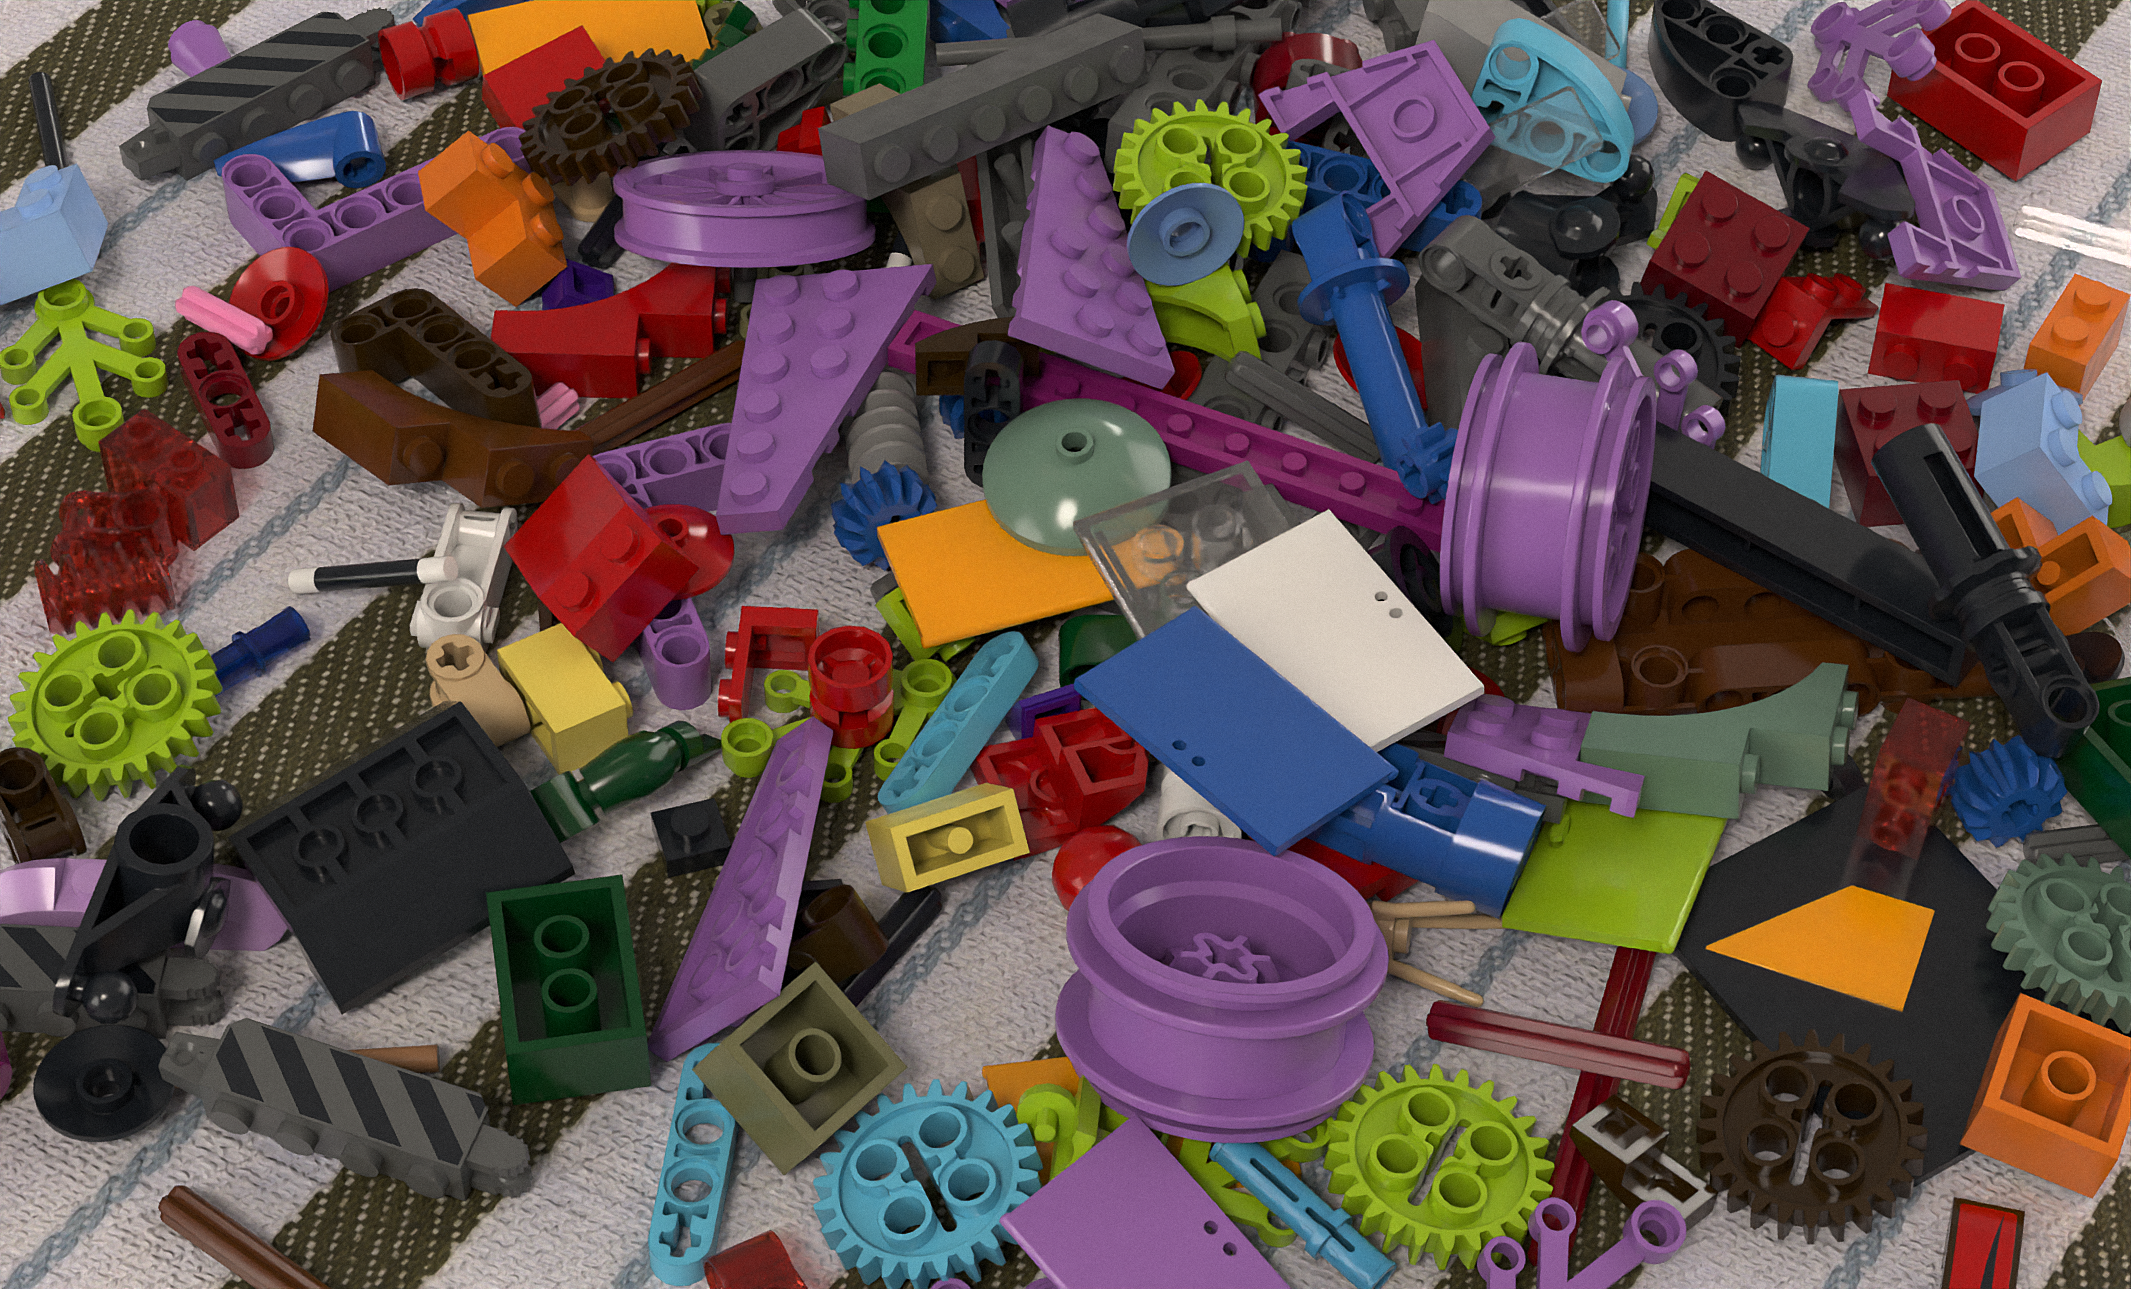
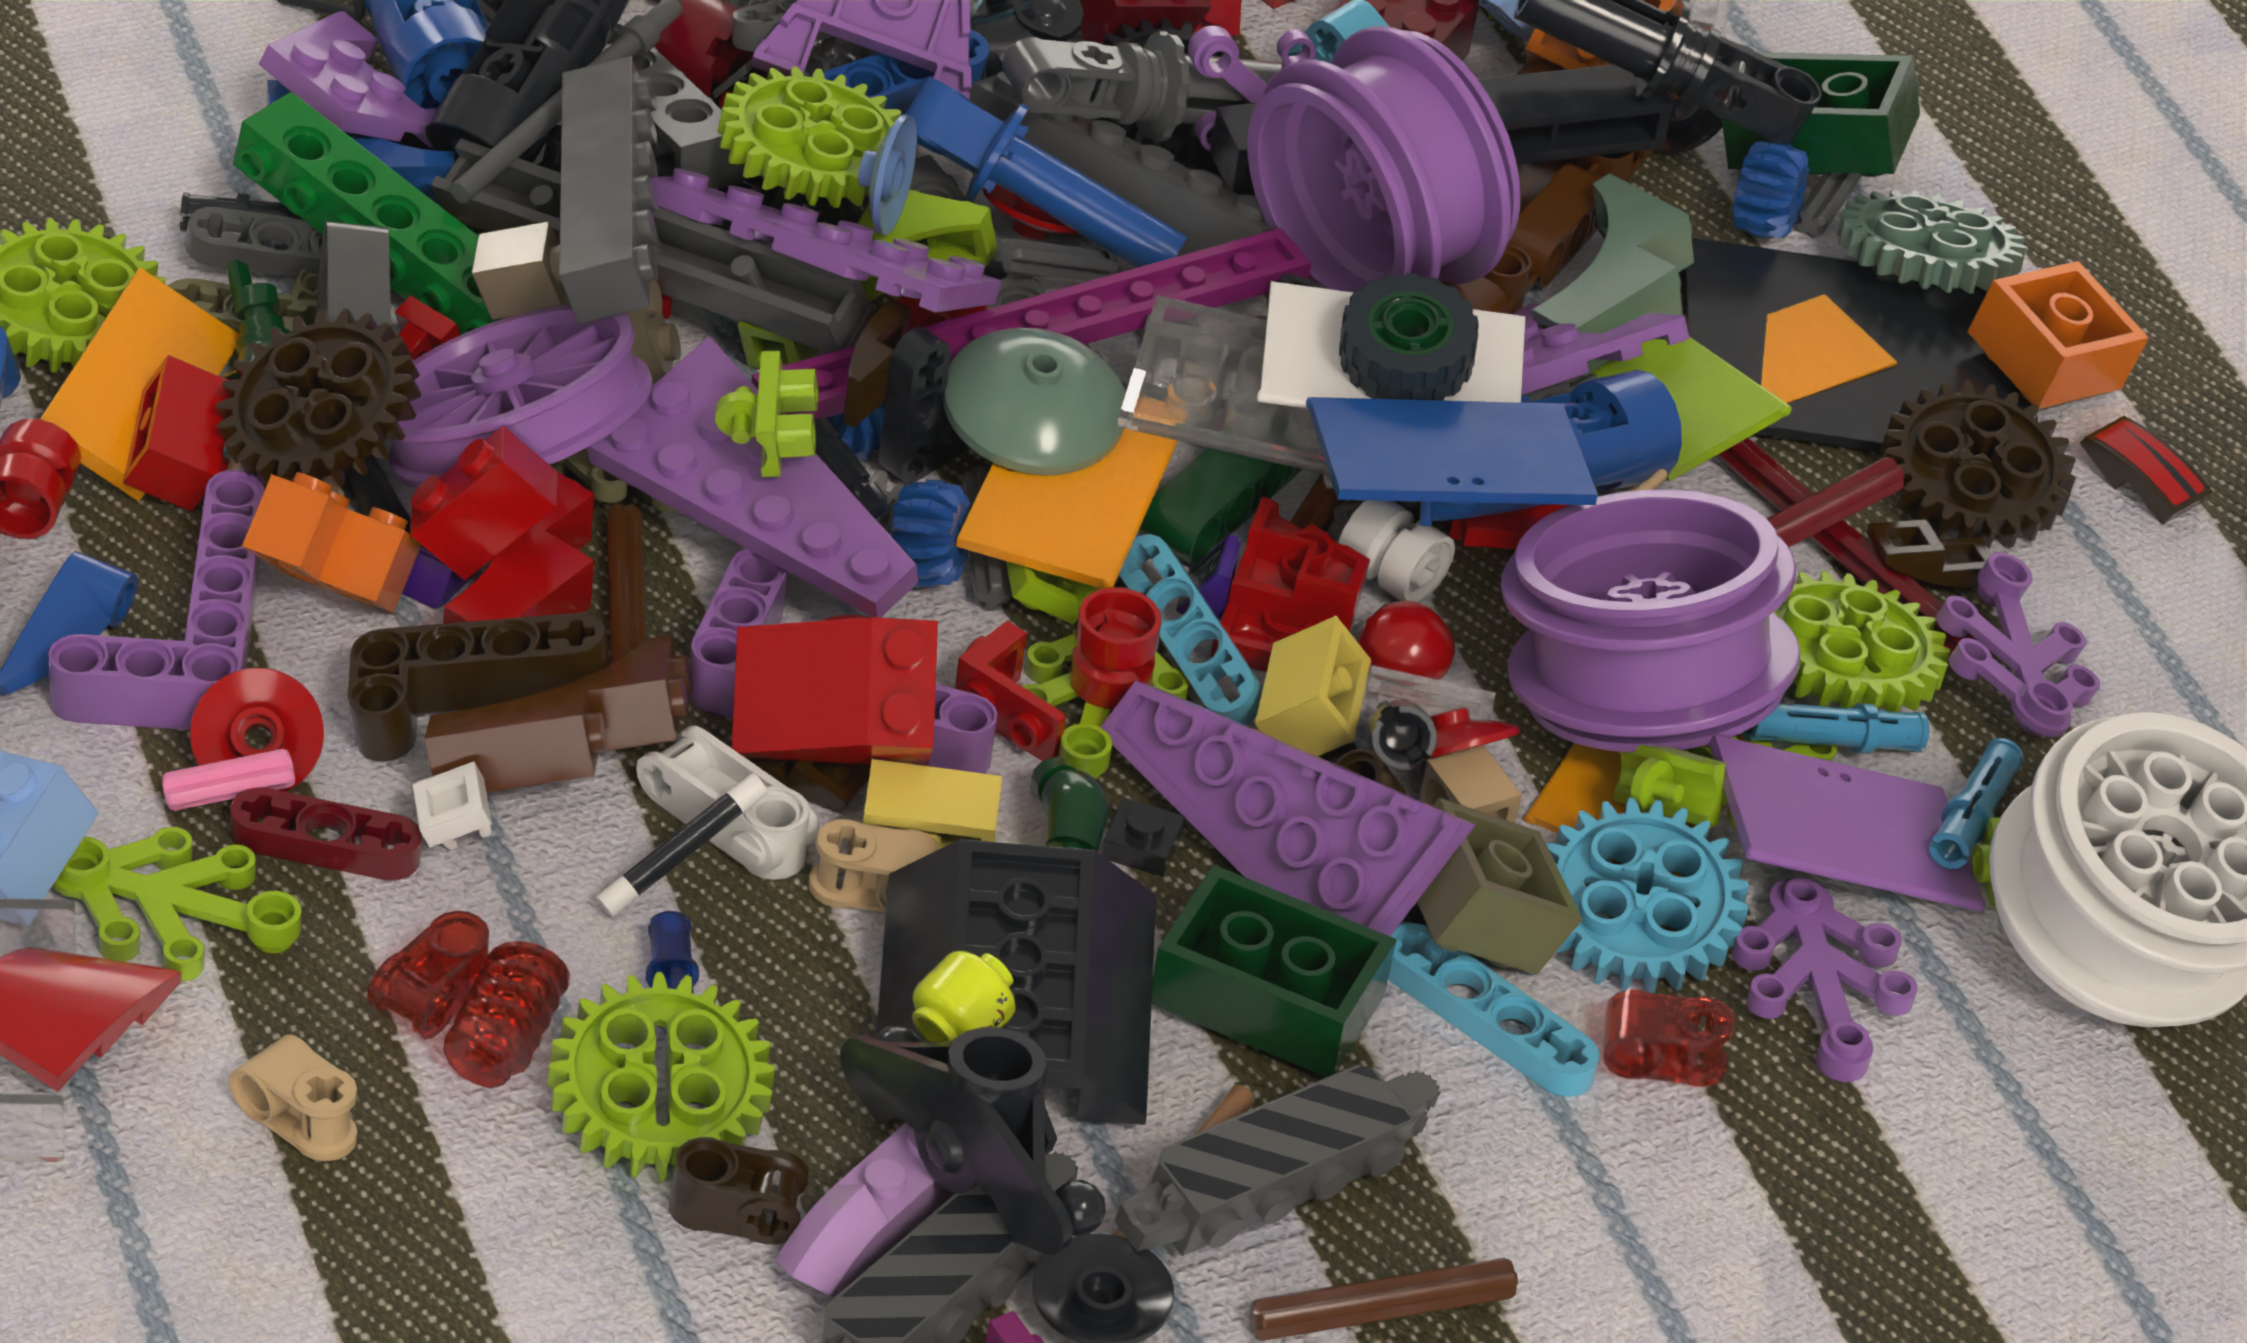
camera: 60 degrees left, 5 degrees down
(185, 473) = (397, 898): clear red brick -> none
(265, 801) = (963, 996): none -> neon yellow head
(295, 440) = (452, 805): none -> white tile
(598, 253) = (483, 502): none -> red brick
(836, 331) = (763, 415): none -> lime hips
(864, 419) = (848, 468): none -> black axle
(914, 906) = (1402, 734): none -> black piece
(936, 1011) = (1471, 780): none -> tan brick
(986, 955) = (1459, 732): none -> red dish
(1037, 911) = (1430, 694): none -> clear tile
(1335, 623) = (1408, 338): none -> black wheel
(1428, 463) = (1250, 215): blue gear -> none
(1912, 778) = (1744, 212): clear red brick -> none

